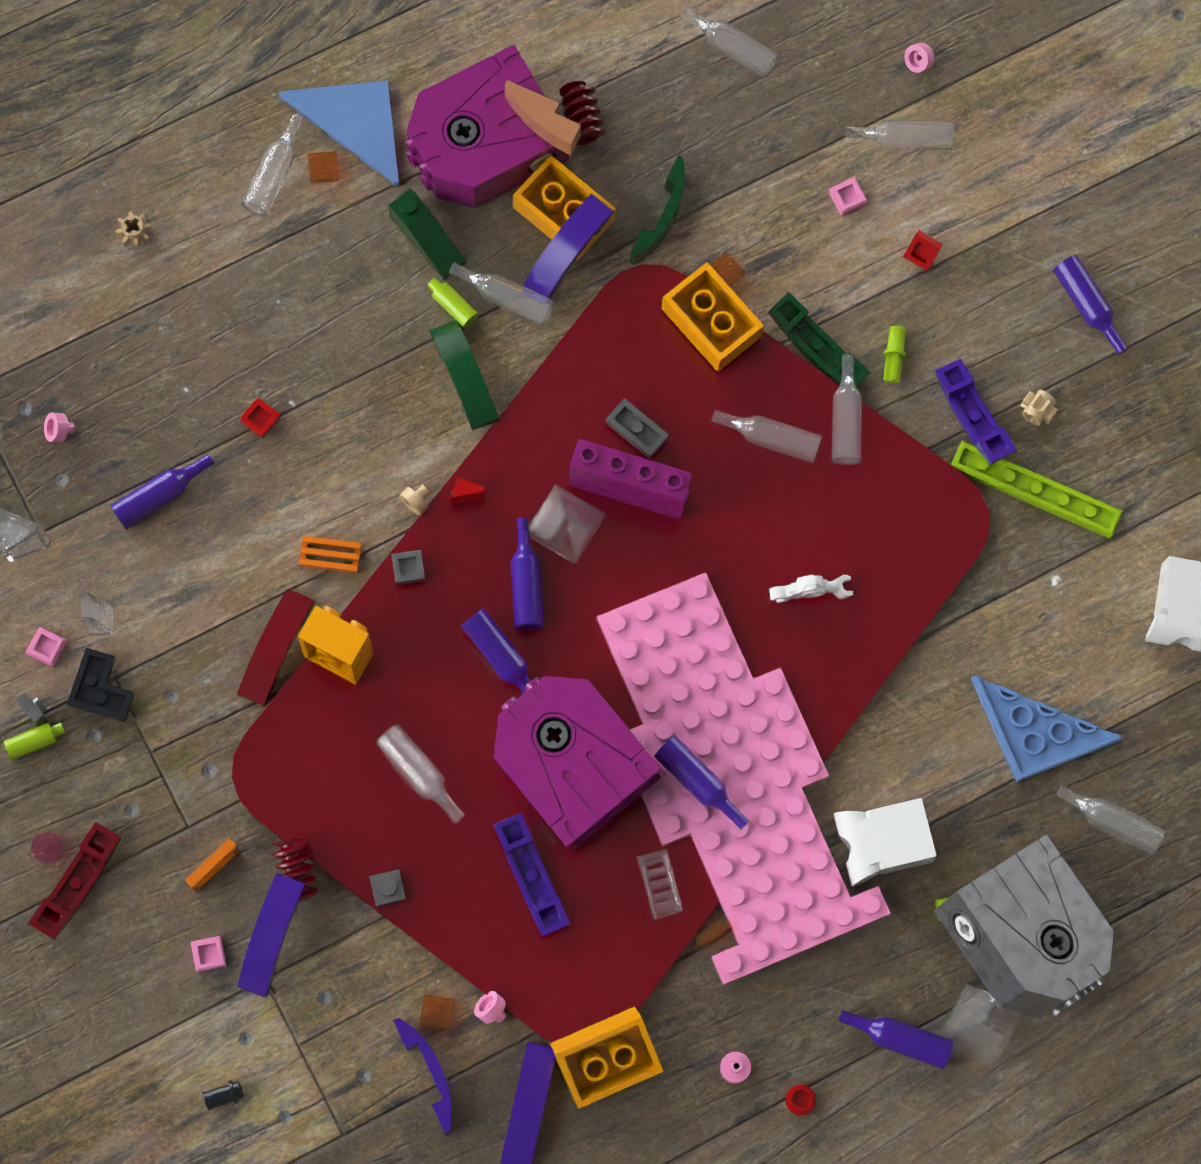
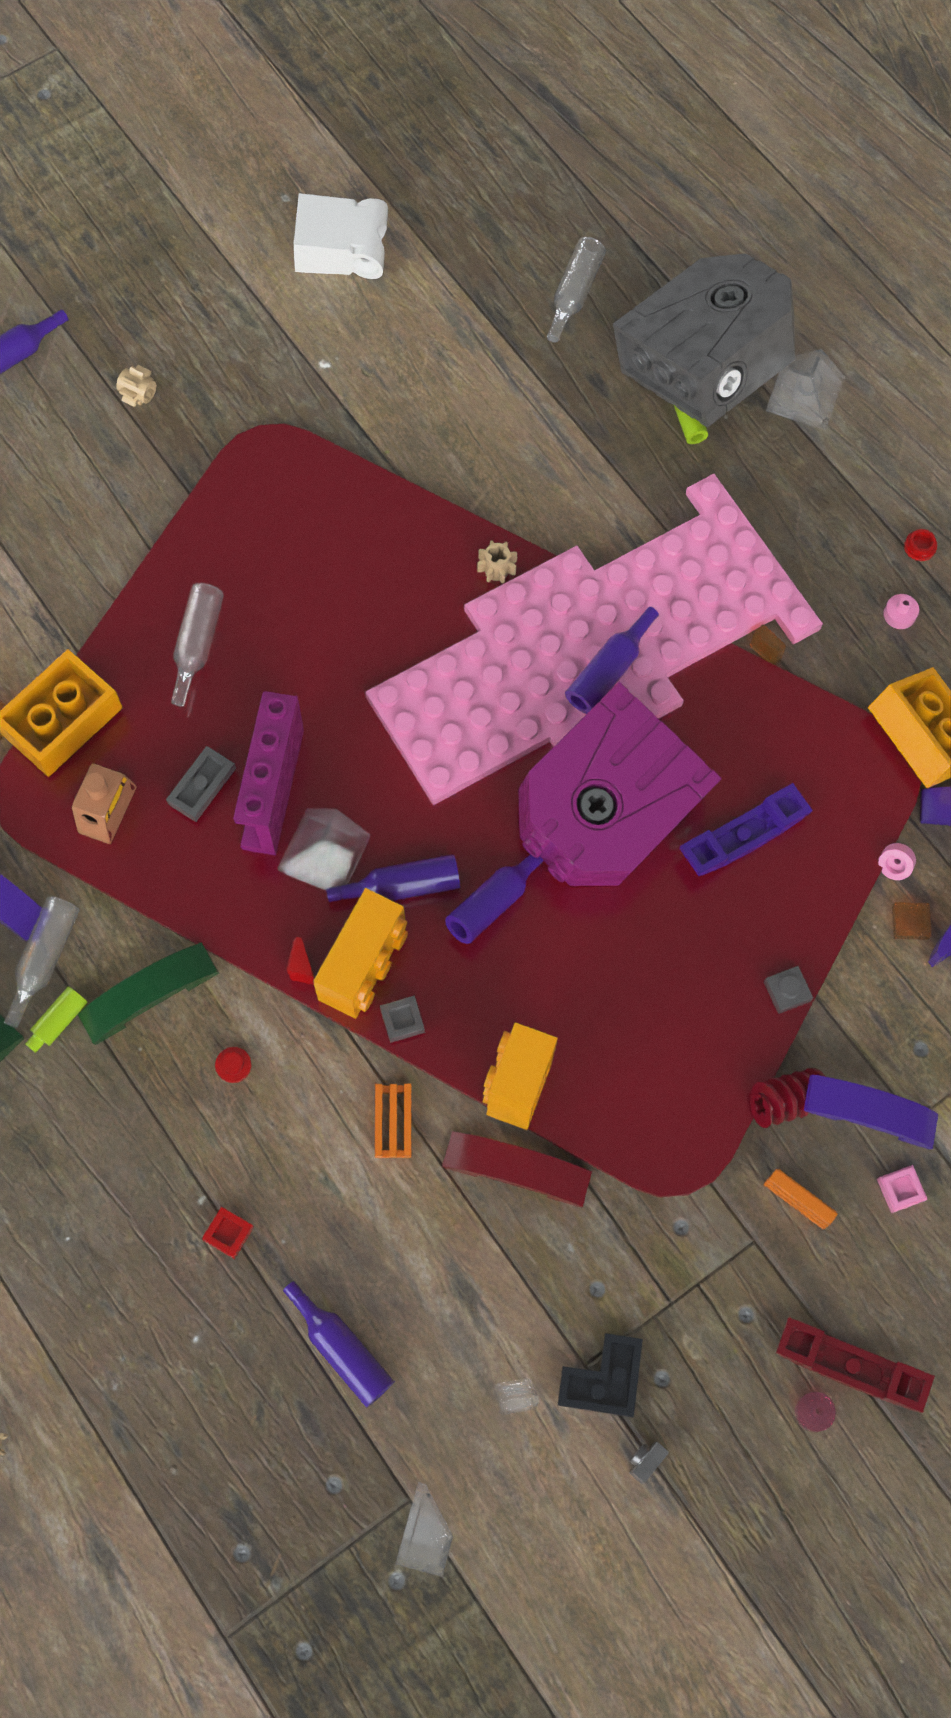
camera: 95 degrees left, 5 degrees down
(33, 740) = (685, 1455): lime cylinder -> none
(46, 647) = (560, 1461): bright pink tile -> none
(57, 427) = (267, 1499): bright pink tile -> none
(394, 435) = (233, 1064): none -> red plate
(415, 499) = (314, 1026): tan tile -> none
(417, 769) = (645, 973): clear piece -> none
(462, 537) = (361, 954): none -> light orange brick
(628, 348) = (102, 797): none -> nougat torso
(666, 907) = (731, 685): clear slope -> none
(810, 587) = (371, 579): white piece -> none
(813, 340) = (82, 610): dark green slope -> none
(822, 707) = (497, 561): none -> tan gear
(847, 417) = (165, 565): clear piece -> none
(885, 839) = (635, 485): white piece -> none
(894, 354) = (84, 532): lime axle -> none
(903, 1038) = (838, 453): dark purple piece -> none
(973, 414) = (151, 448): dark purple slope -> none
(1035, 734) = (493, 367): medium blue tile -> none
(1038, 491) = (226, 388): lime tile -> none

